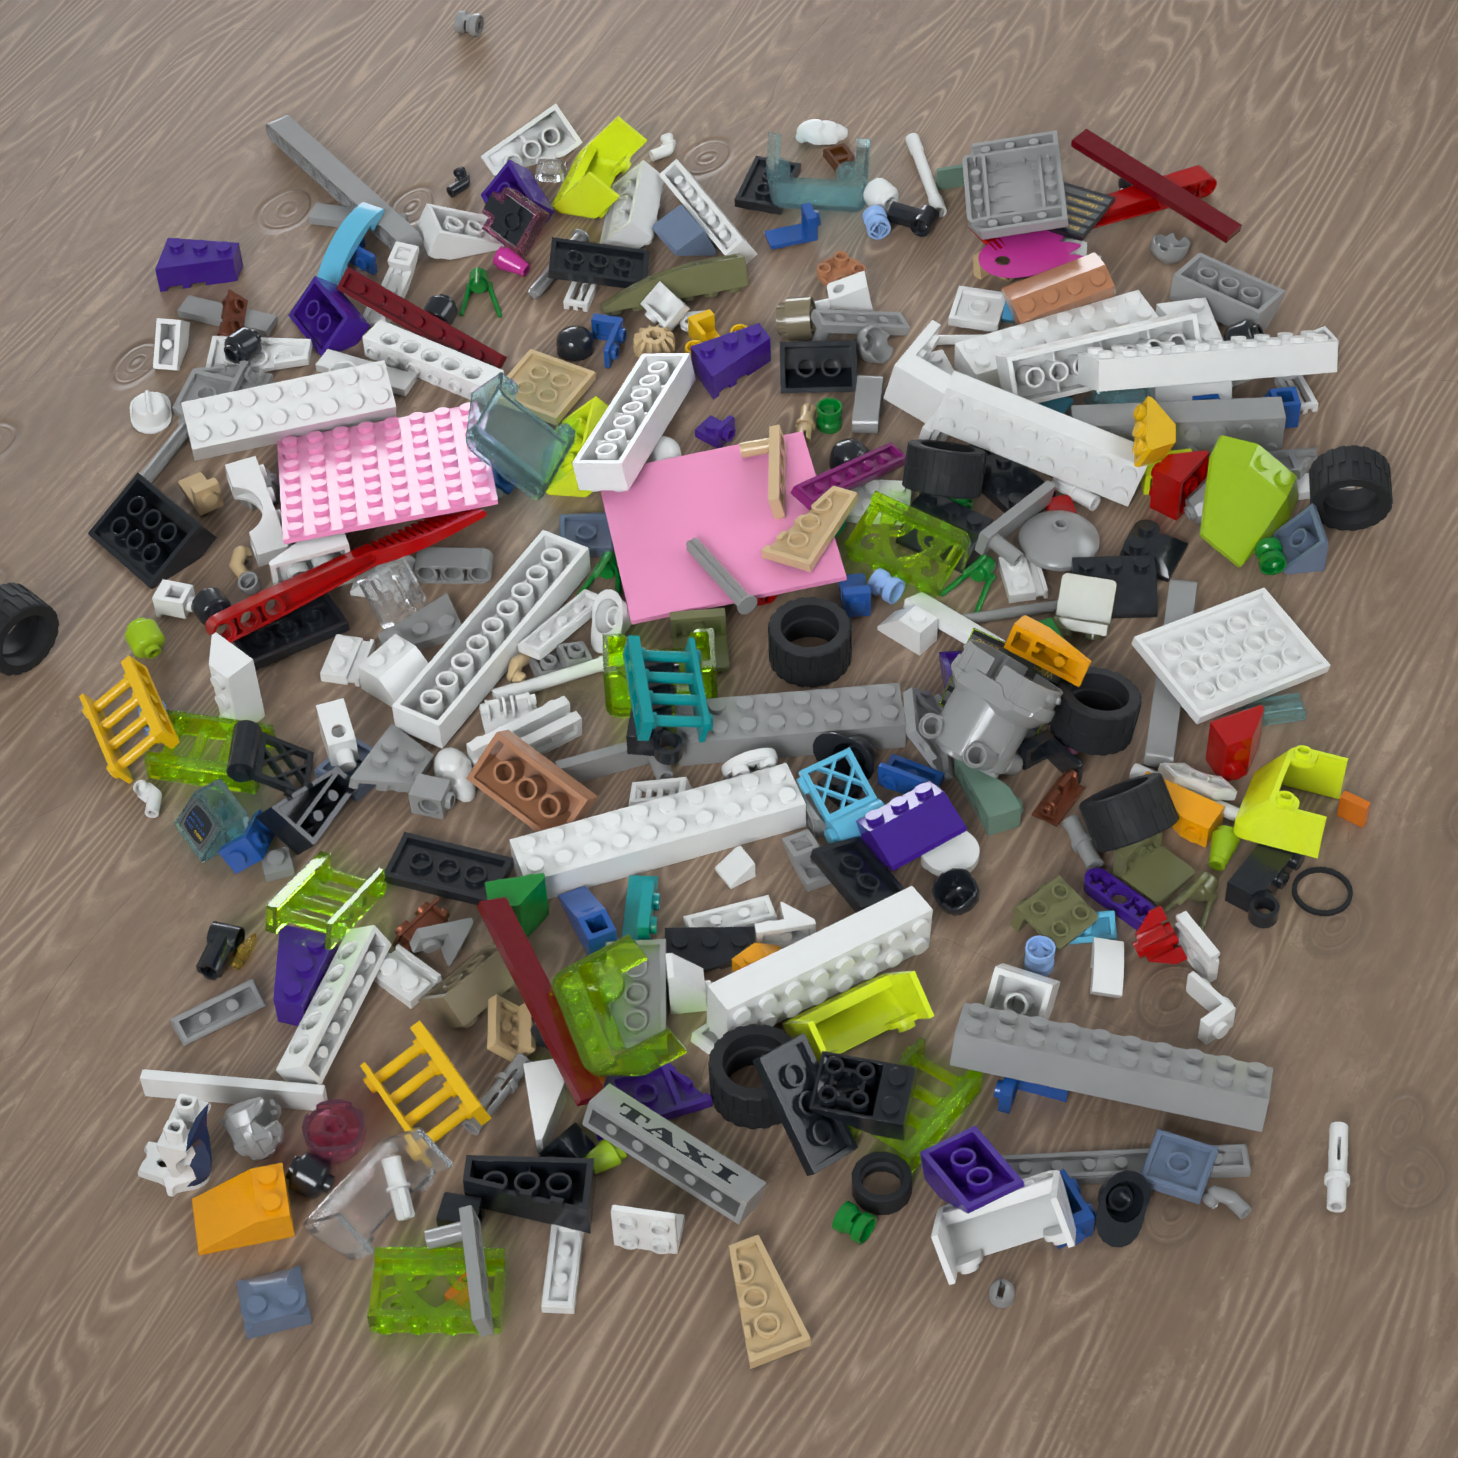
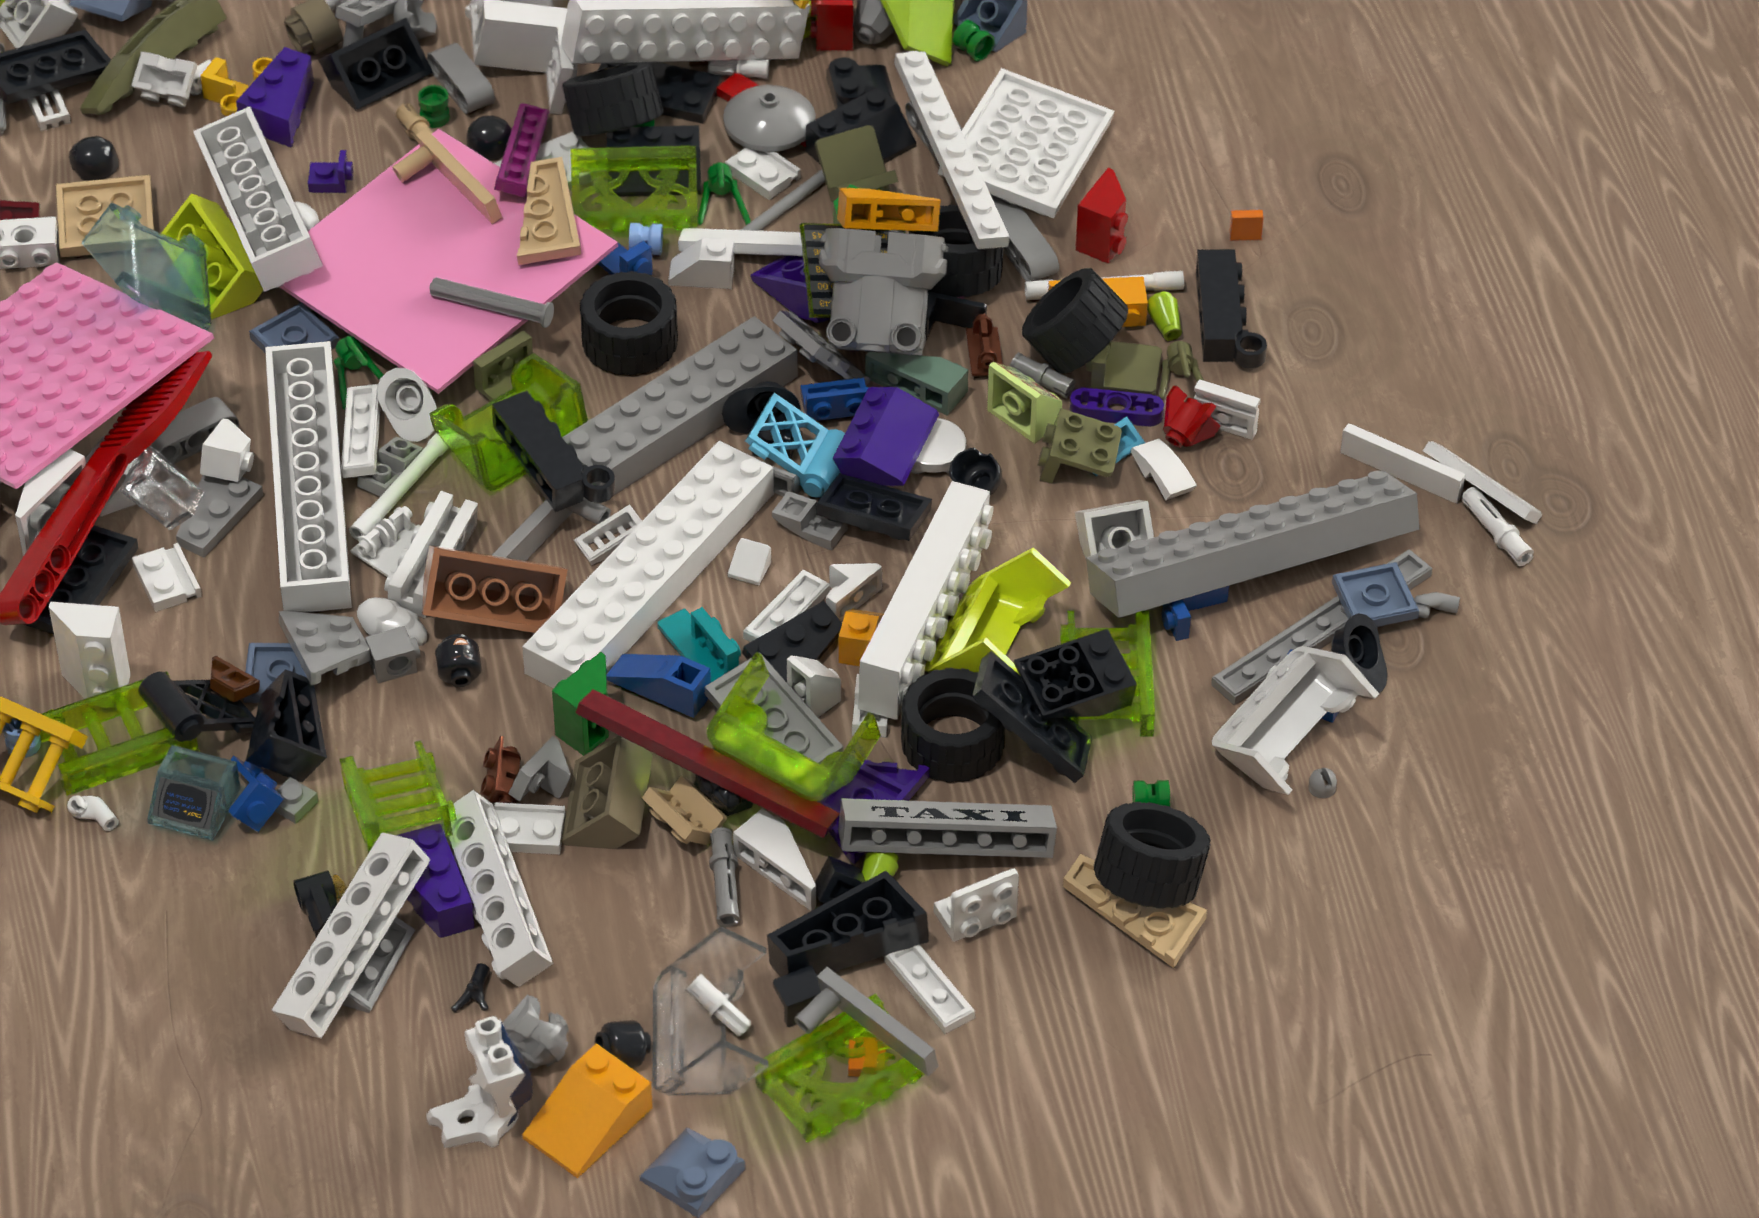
camera: 40 degrees left, 0 degrees up
(202, 982) = (351, 935): none -> white brick
(231, 1089) = (452, 1023): white tile -> none
(262, 1070) = (474, 989): none -> black bar
(310, 755) = (231, 681): none -> reddish brown tile
(334, 1130) = (615, 988): clear pink cylinder -> none
(341, 741) = (250, 642): white torso -> none
(391, 669) = (238, 562): white slope -> none
(438, 1065) = (658, 875): yellow fence -> none
(445, 868) = (477, 710): black plate -> none
(454, 591) = (226, 453): none -> white slope
(468, 825) = (458, 660): none -> black head
(516, 663) = (352, 493): tan arm -> none
(610, 330) = (124, 126): blue bracket -> none
(643, 699) = (542, 443): teal fence -> none
(653, 341) = (181, 118): tan gear -> none
(749, 762) = (683, 461): white tile -> none
(779, 1288) = (1152, 855): none -> black tyre
(881, 1162) = (1145, 733): black tyre -> none
(968, 1171) = (1219, 695): dark purple slope -> none
(994, 535) = (718, 144): light grey piece -> none
(1039, 955) = (1097, 488): light blue wheel -> none
(1044, 851) = (1020, 401): none -> yellowish green slope
(1150, 631) = (951, 150): none -> white plate
(1209, 785) = (1105, 267): white tile -> none
(1220, 1009) = (1279, 449): white bracket -> none
(1274, 815) = (1193, 260): neon yellow windscreen -> none
(1276, 704) = (1096, 168): clear light blue tile -> none
(1301, 904) = (1277, 331): black piece -> none
(1304, 1070) = (1402, 463): none -> white tile
(1356, 1124) = (1484, 482): none -> white tile

